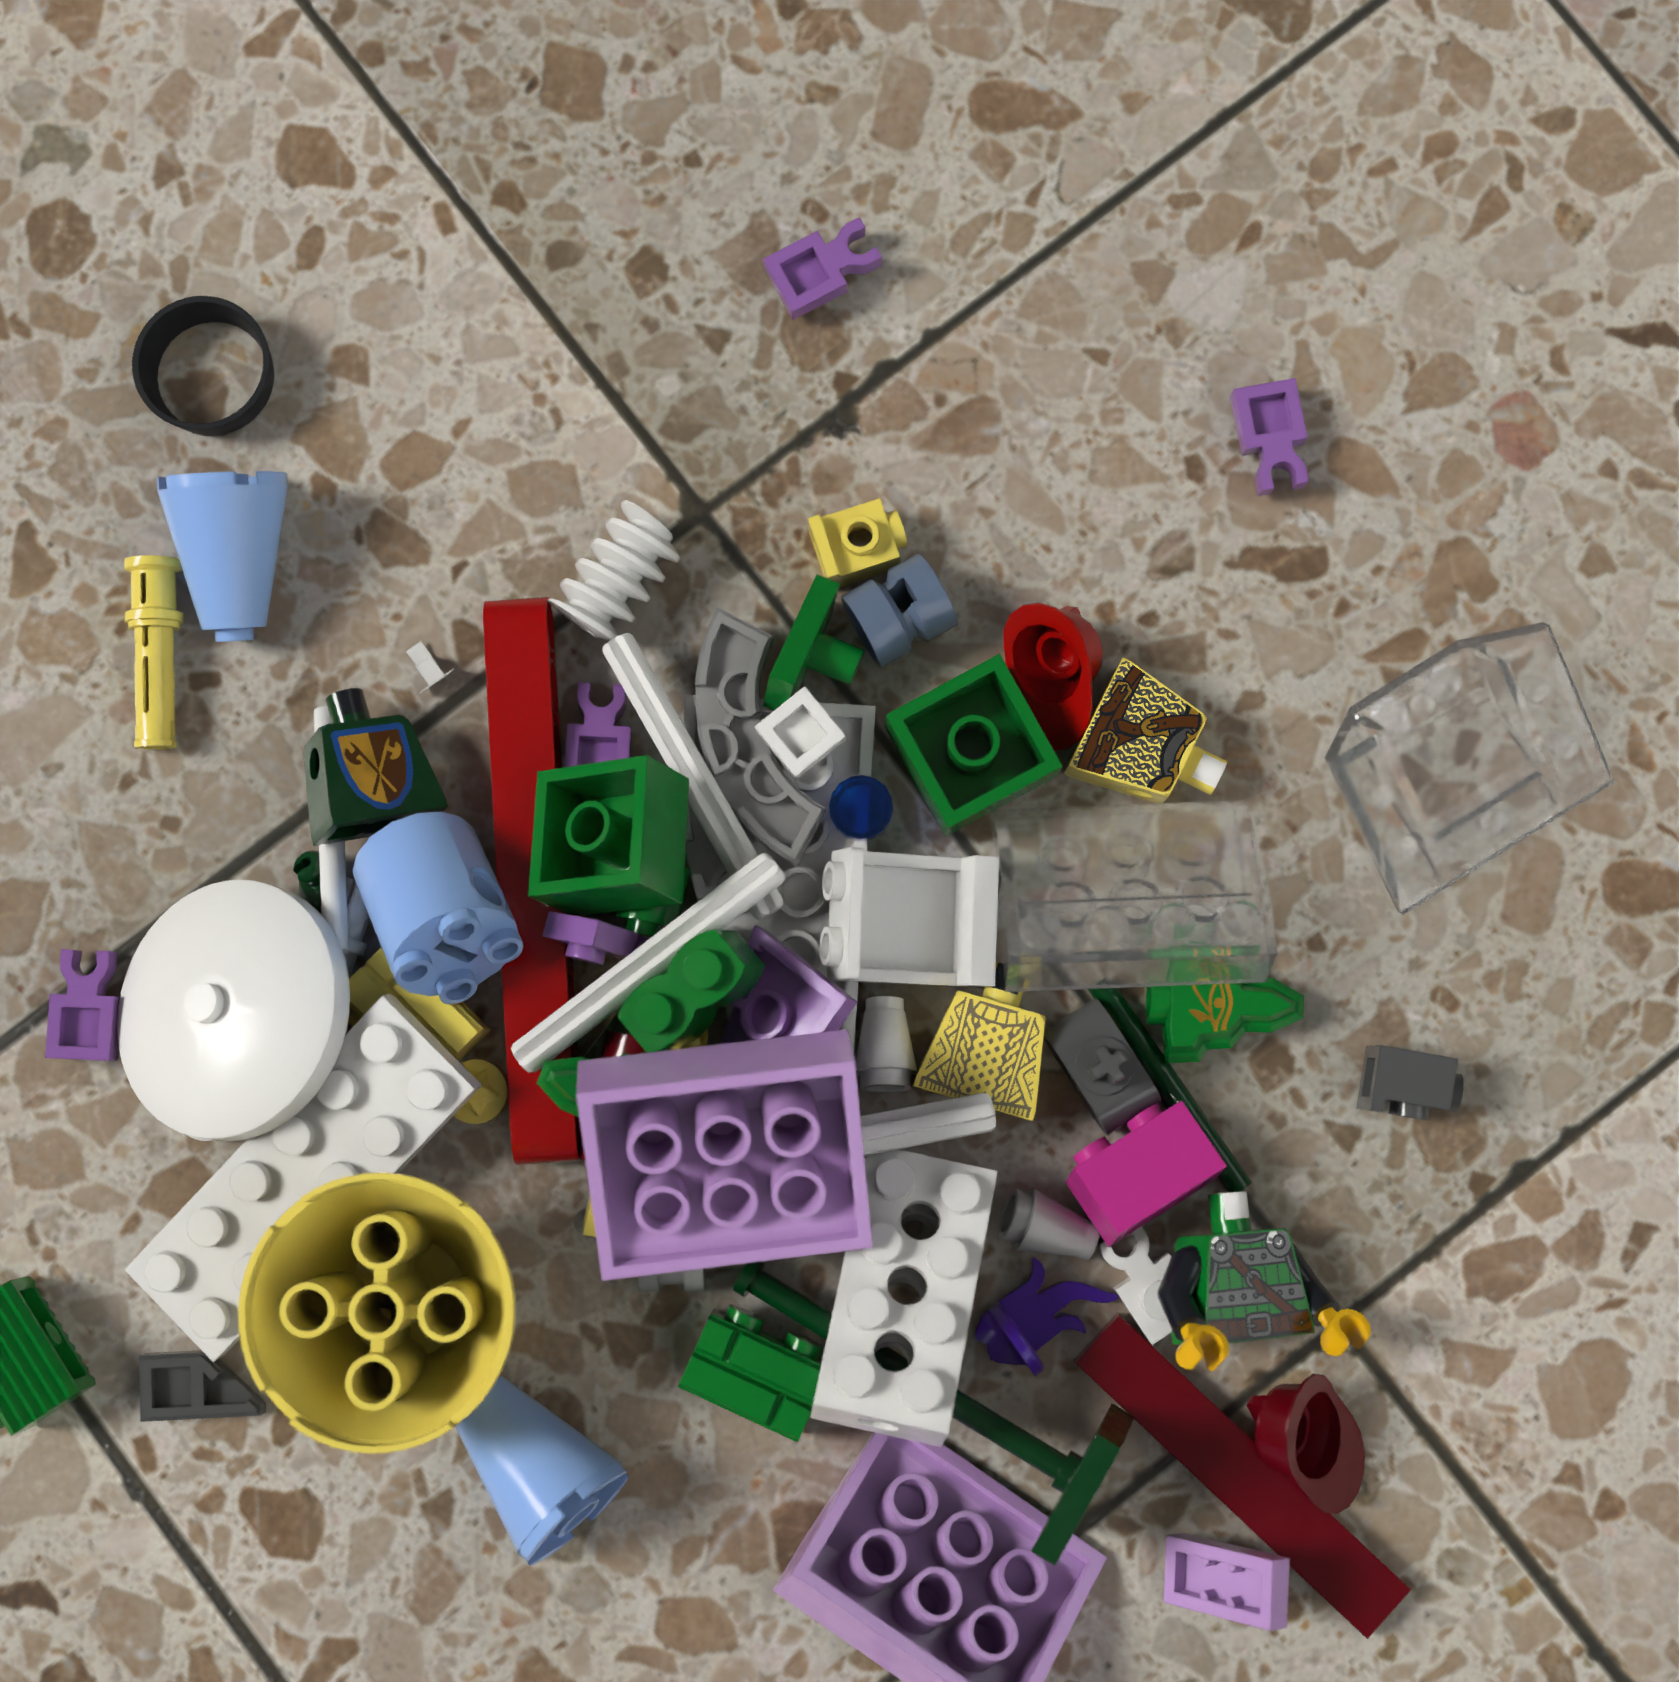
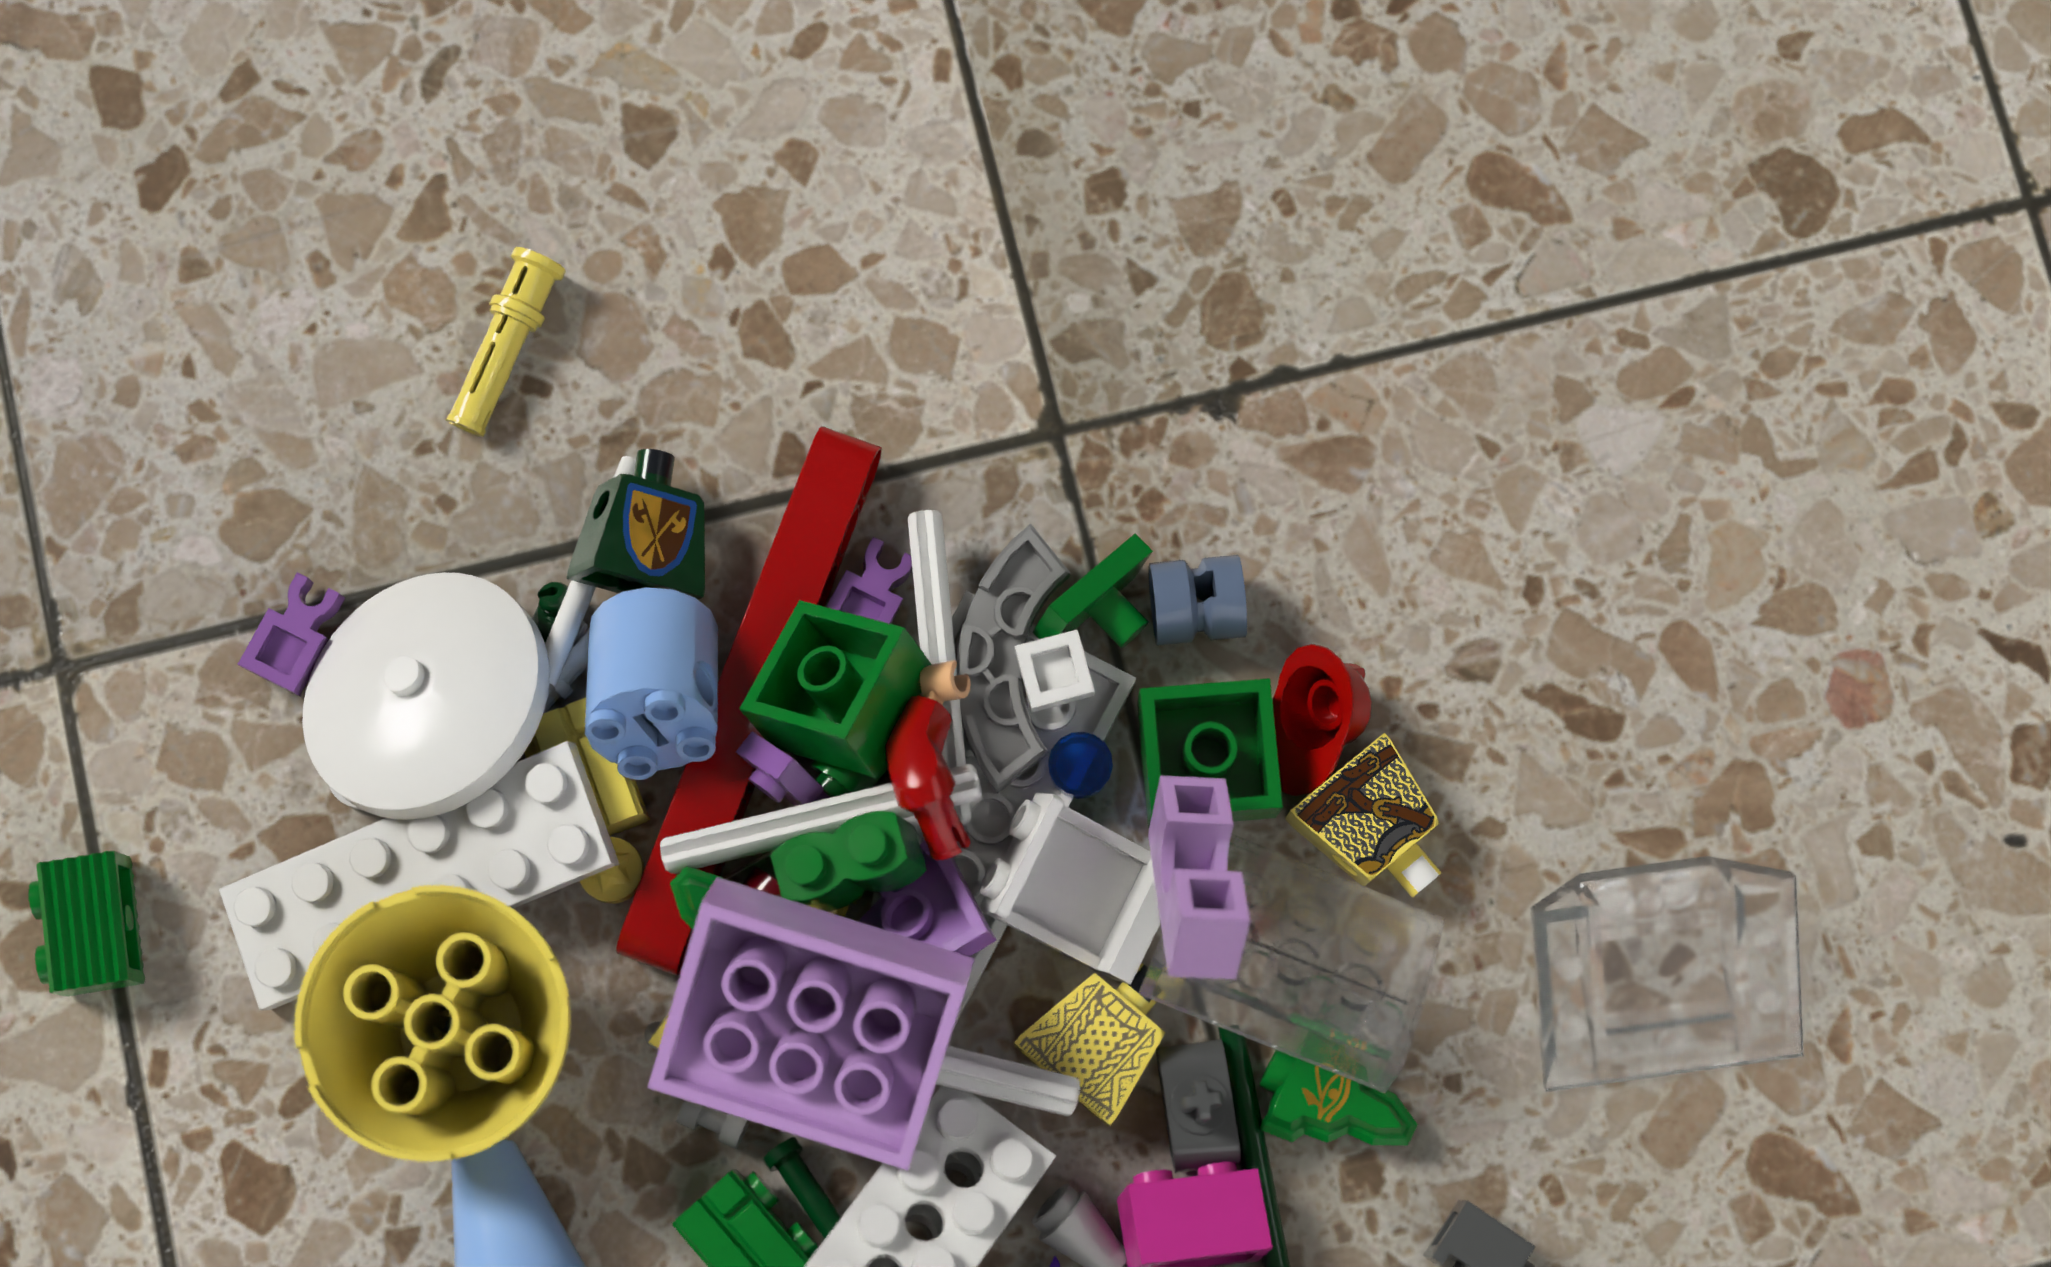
camera: 20 degrees right, 5 degrees down
(173, 321) = (652, 54): black tyre -> none
(192, 1387) = (229, 1026): dark grey tile -> none
(227, 544) = (612, 274): light blue cone -> none
(426, 665) = (742, 461): white piece -> none
(618, 573) = (953, 453): white piece -> none
(713, 875) = (915, 760): none -> red arm
(813, 272) = (1255, 257): medium lavender plate -> none
(850, 563) = (1172, 538): light yellow brick -> none
(885, 1047) = (1004, 997): white cone -> none
(1030, 888) = (1198, 899): none -> lavender arch
(1271, 424) = (1620, 579): medium lavender plate -> none

